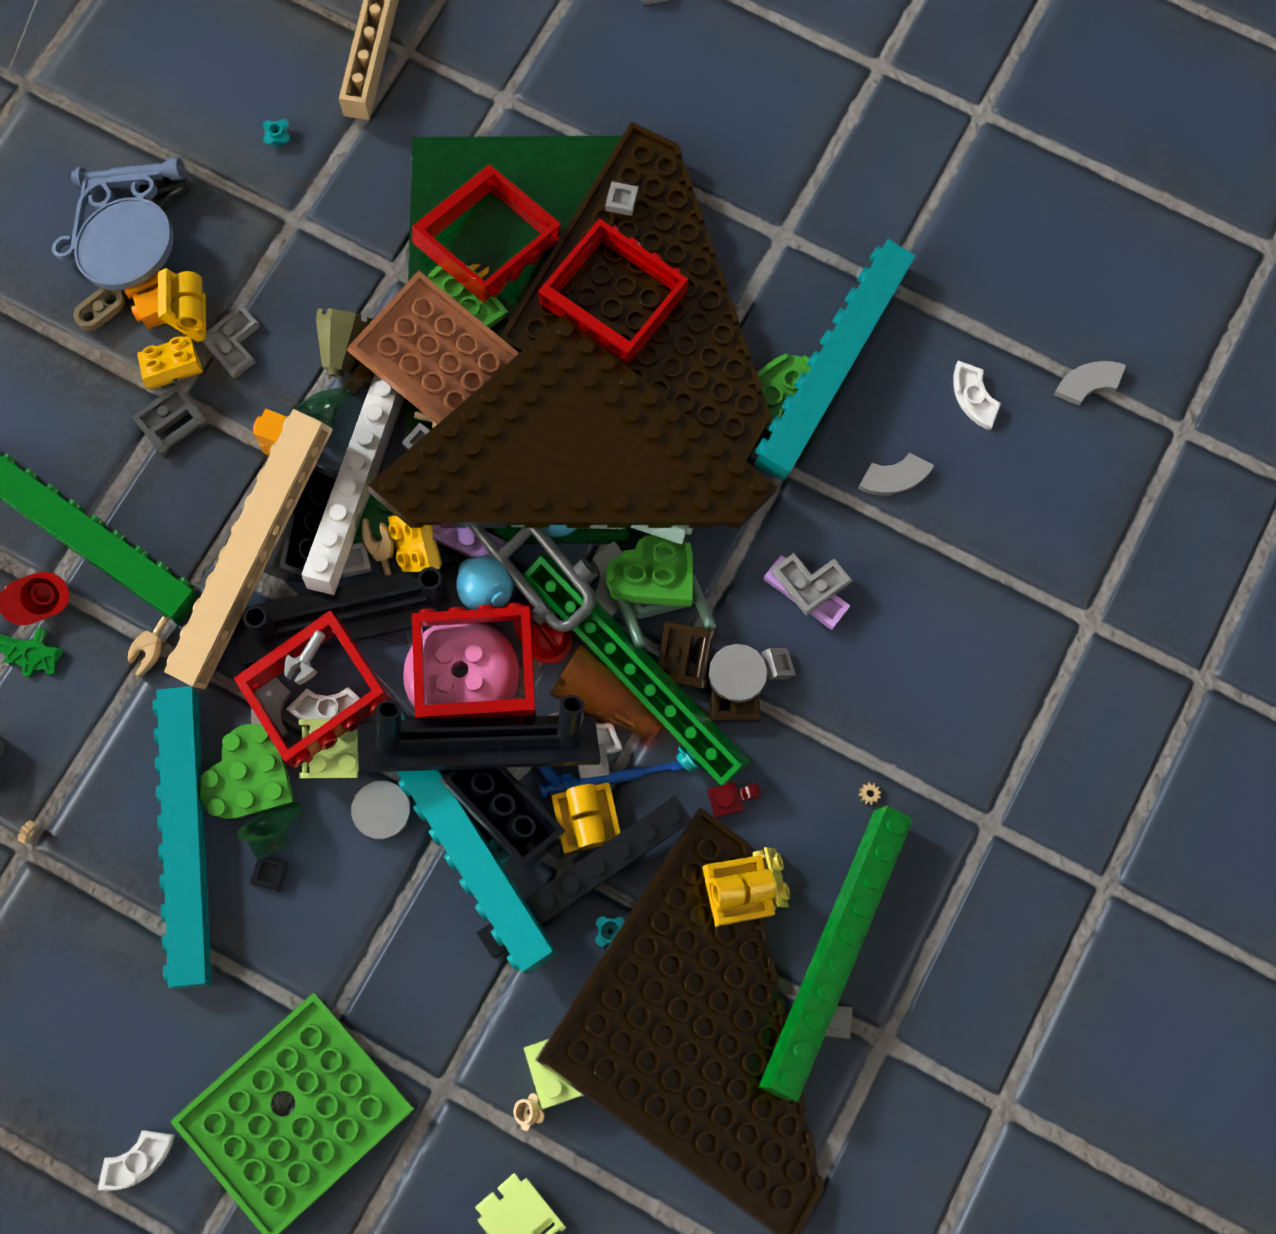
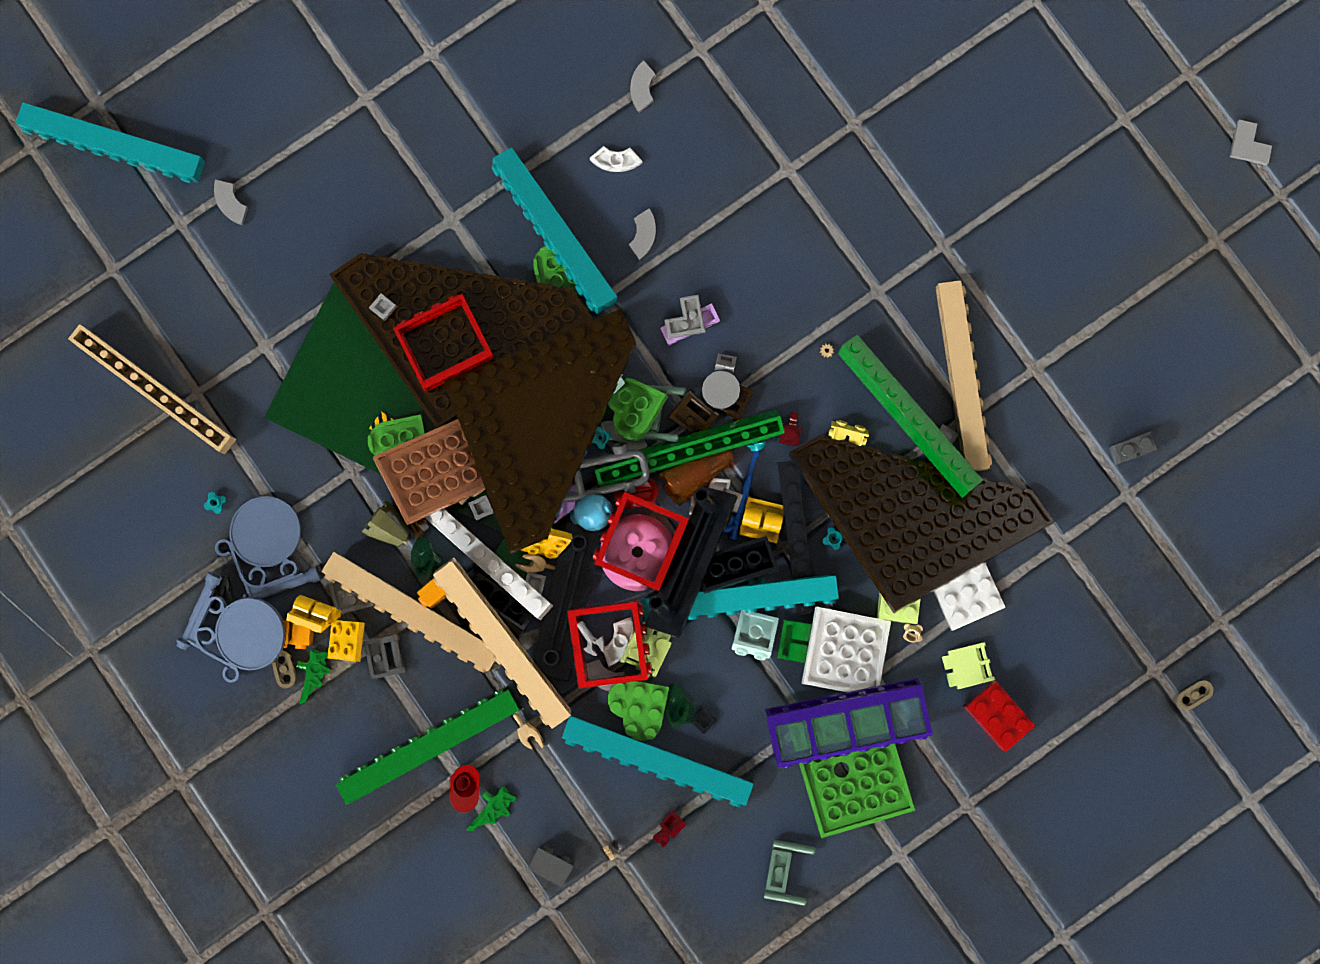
camera: 60 degrees left, 10 degrees up
(97, 900) = (670, 827): none -> dark red plate
(97, 1084) = (779, 871): none -> sand green plate
(113, 347) = (315, 670): none -> green piece
(137, 1163) = (834, 868): white tile -> none
(245, 401) = (408, 610): none -> tan brick
(259, 208) = (265, 535): none -> sand blue piece
(351, 1078) = (848, 722): none -> window
(381, 810) = (698, 638): light grey tile -> none
(420, 885) = (755, 635): none -> light aqua plate
(438, 954) = (794, 641): none -> green plate
(454, 1027) = (845, 650): none -> white plate
(463, 199) = (350, 371): red window -> none
(587, 541) = (605, 437): none -> teal plate
(621, 1171) = (969, 597): none -> white plate
(740, 890) = (849, 453): yellow plate -> none
(934, 1003) = (962, 375): none -> tan brick

